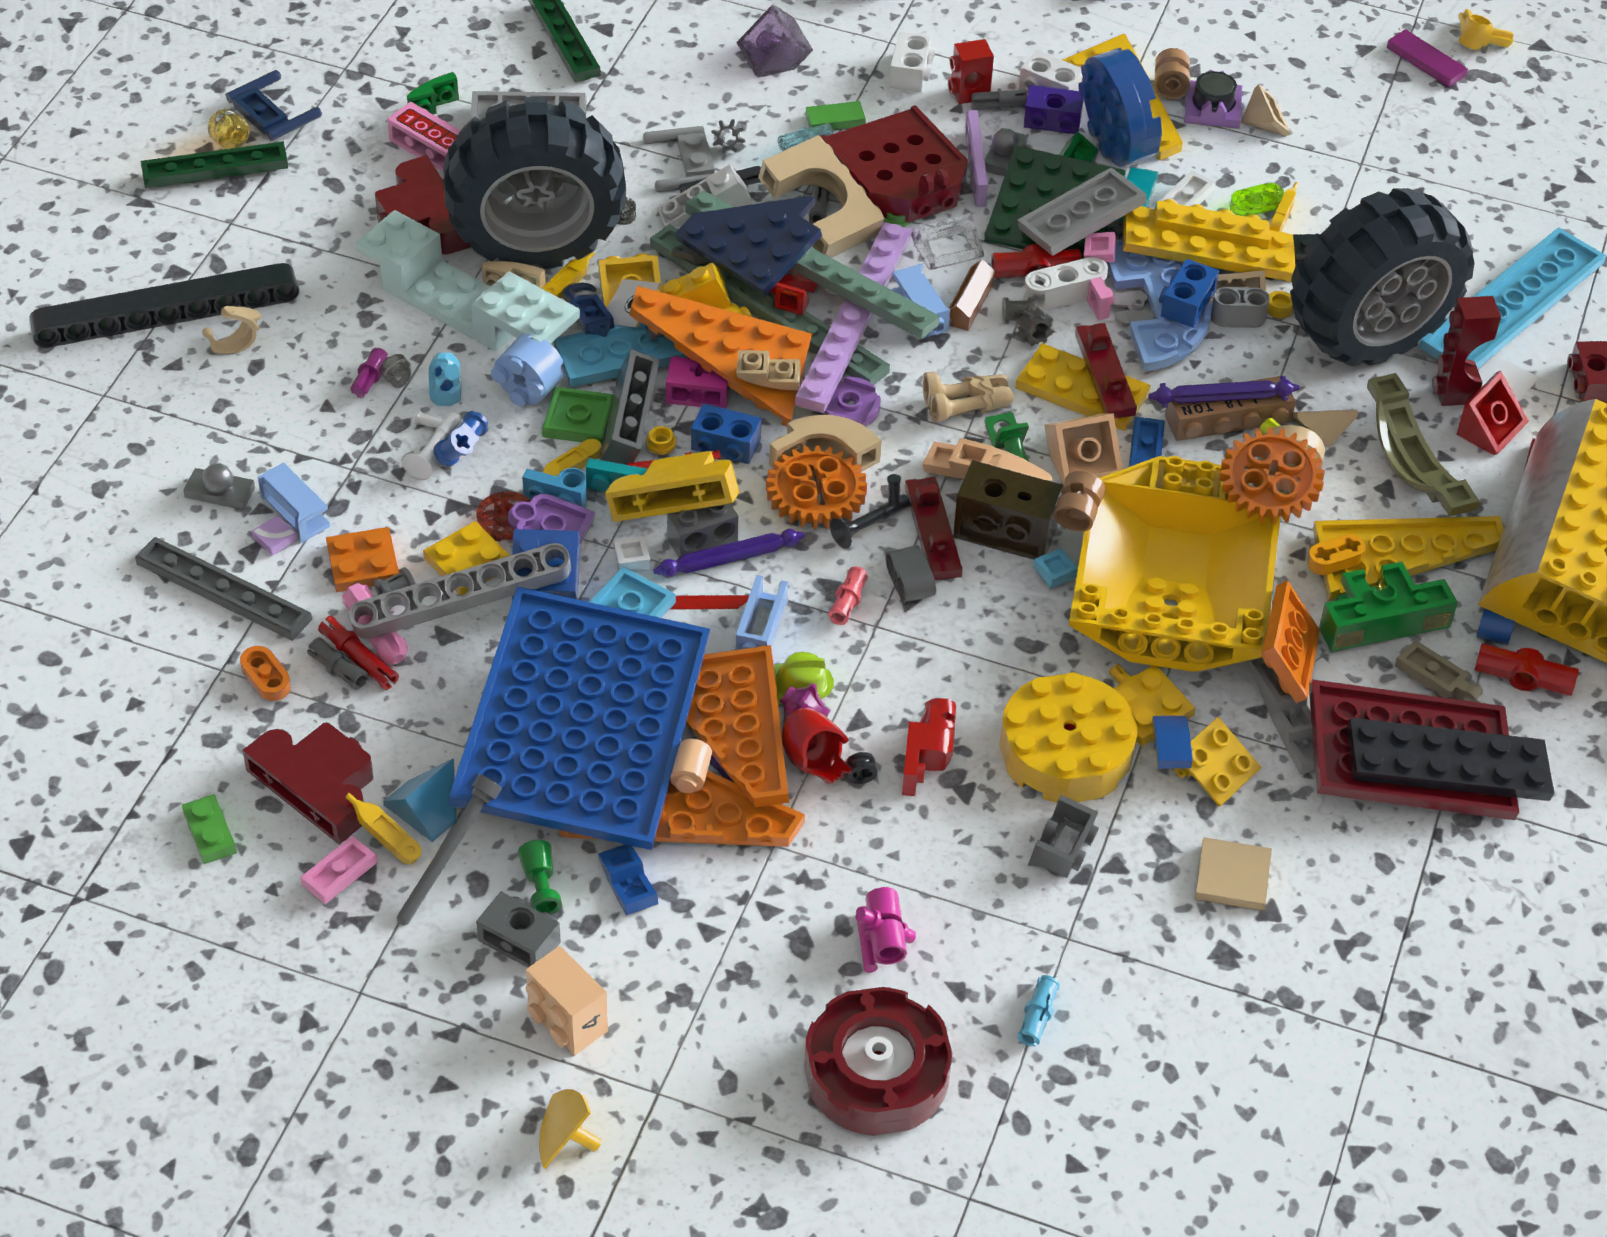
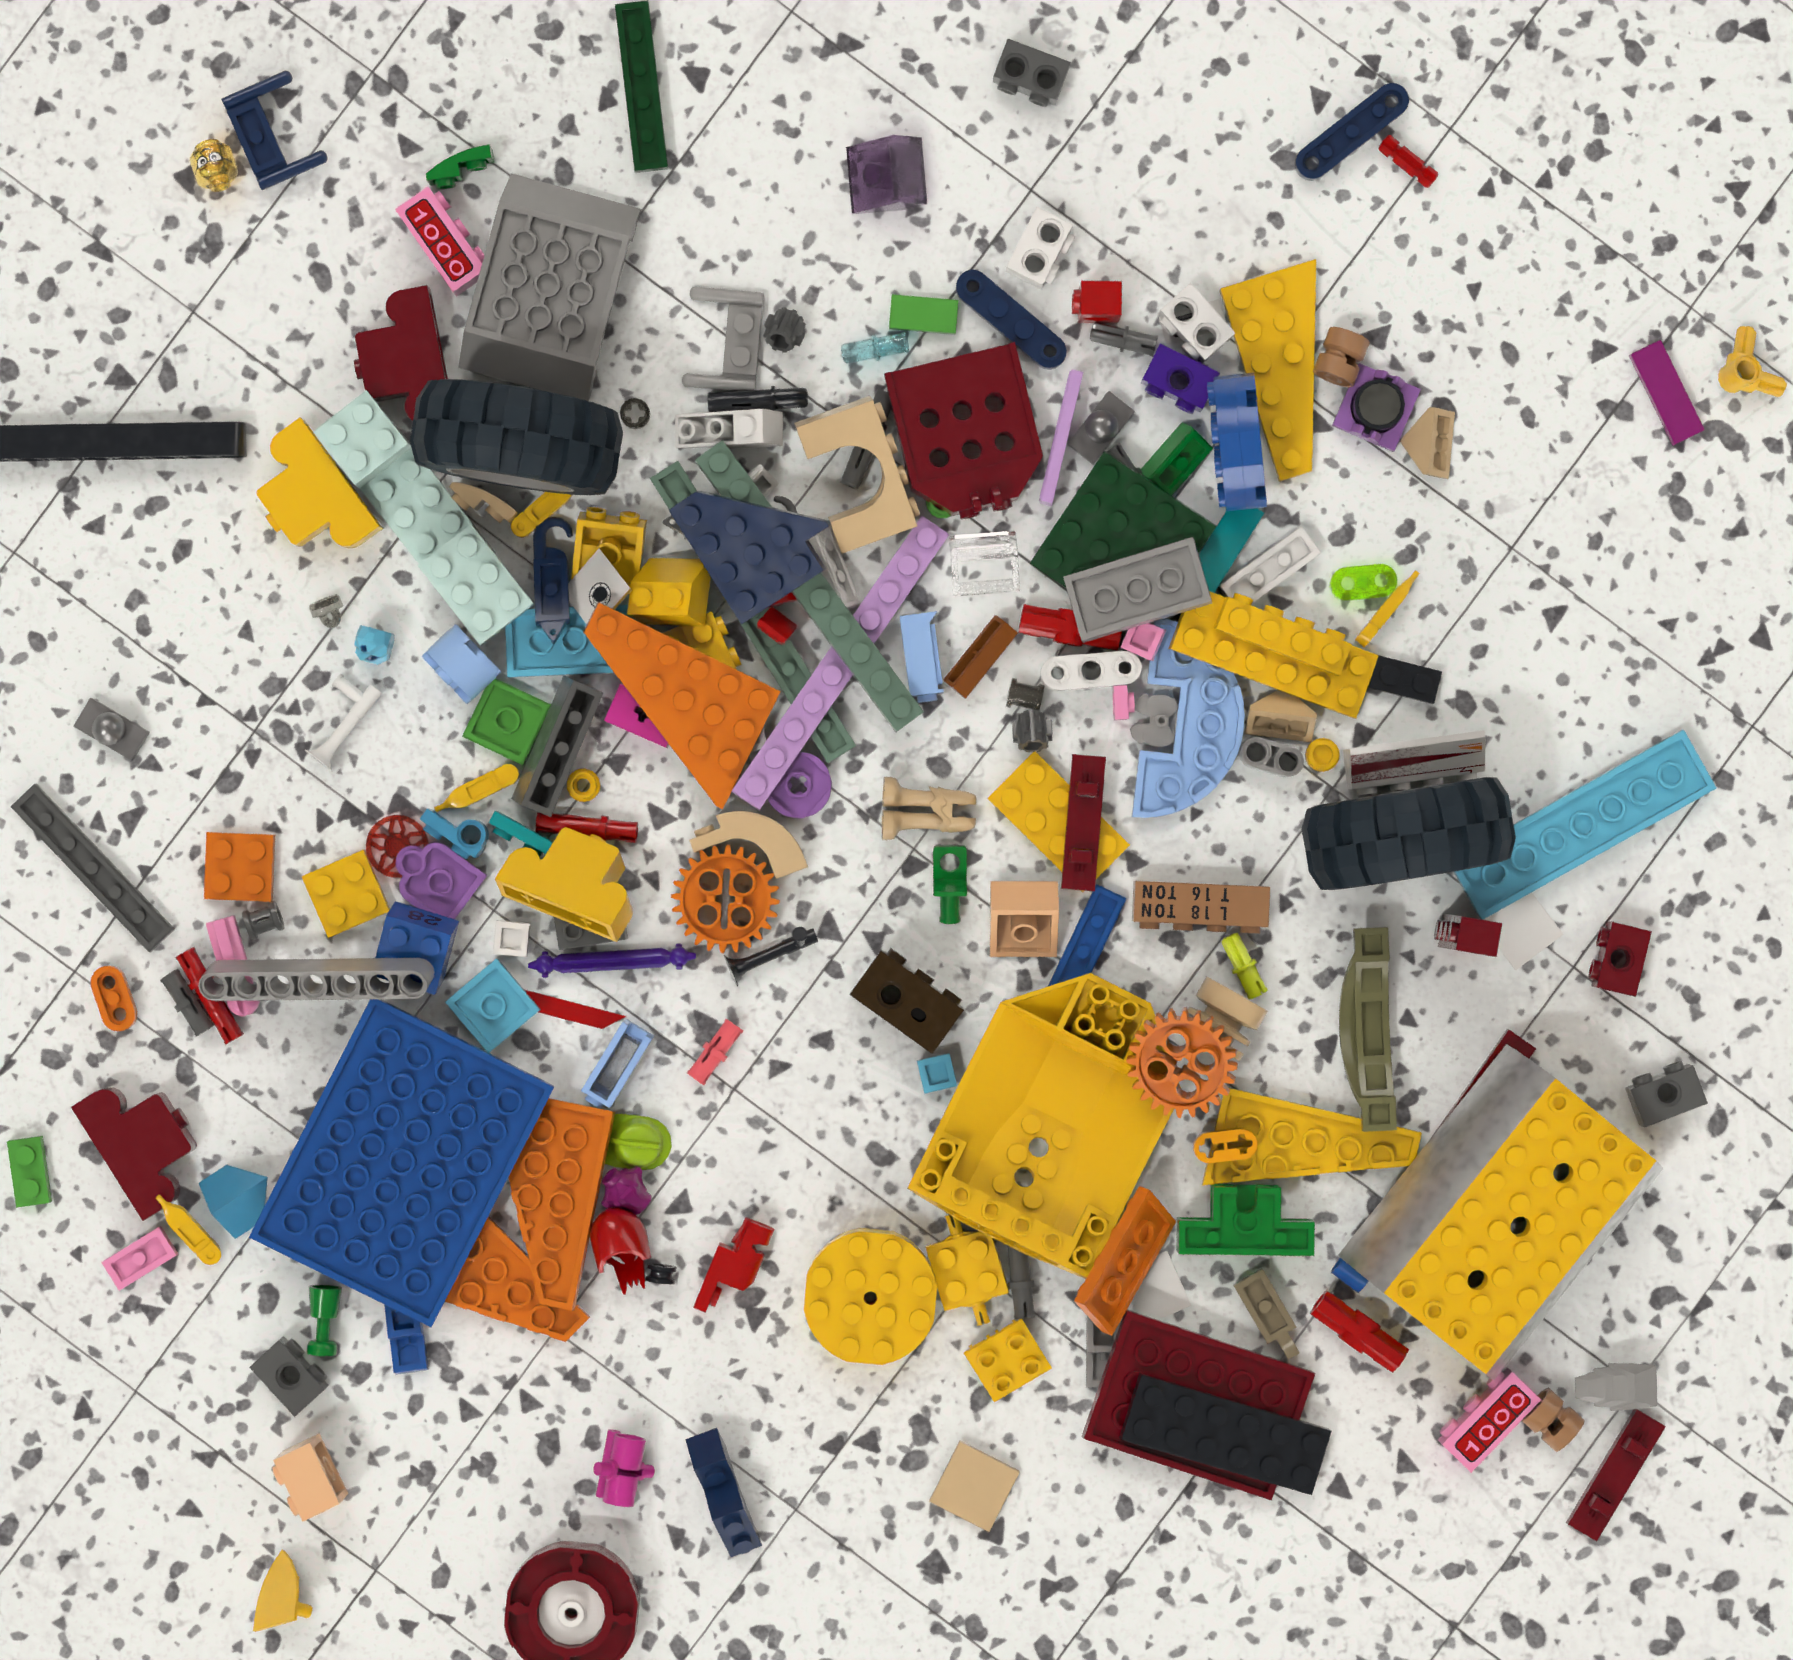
camera: 25 degrees right, 40 degrees up
(214, 164) = (188, 219): dark green plate -> none
(242, 337) = (165, 513): tan helmet -> none
(274, 535) = (156, 810): lavender tile -> none
(293, 501) = (182, 775): light blue window -> none
(364, 300) = (313, 493): none -> yellow brick
(369, 372) = (297, 604): magenta axle -> none
(462, 439) = (371, 736): blue connector -> none
(483, 792) = (280, 1247): dark grey piece -> none
(691, 765) = (491, 1246): light nougat brick -> none
(726, 430) = (656, 792): blue brick -> none
(772, 373) = (711, 752): tan slope -> none
(889, 102) = (1011, 319): none -> dark blue plate
(910, 573) = (786, 1042): dark grey beam -> none
(933, 528) = (831, 979): dark red hinge -> none
(955, 459) = (908, 927): light nougat slope -> none
(1002, 928) = (723, 1492): none -> dark blue arch
(1038, 1010) = (738, 1586): medium azure pin -> none
(1064, 837) = (826, 1411): dark grey window -> none
(1079, 501) = (968, 1045): medium nougat wheel -> none
(1172, 742) = (965, 1337): blue slope -> none
(1188, 292) = (1220, 744): blue brick -> none
(1202, 700) = (1020, 1284): none -> dark grey pin
(1223, 391) = (1192, 903): dark purple wheel -> none
(1326, 424) = (1298, 943): tan slope -> none
(1492, 416) = (1478, 993): red slope -> none

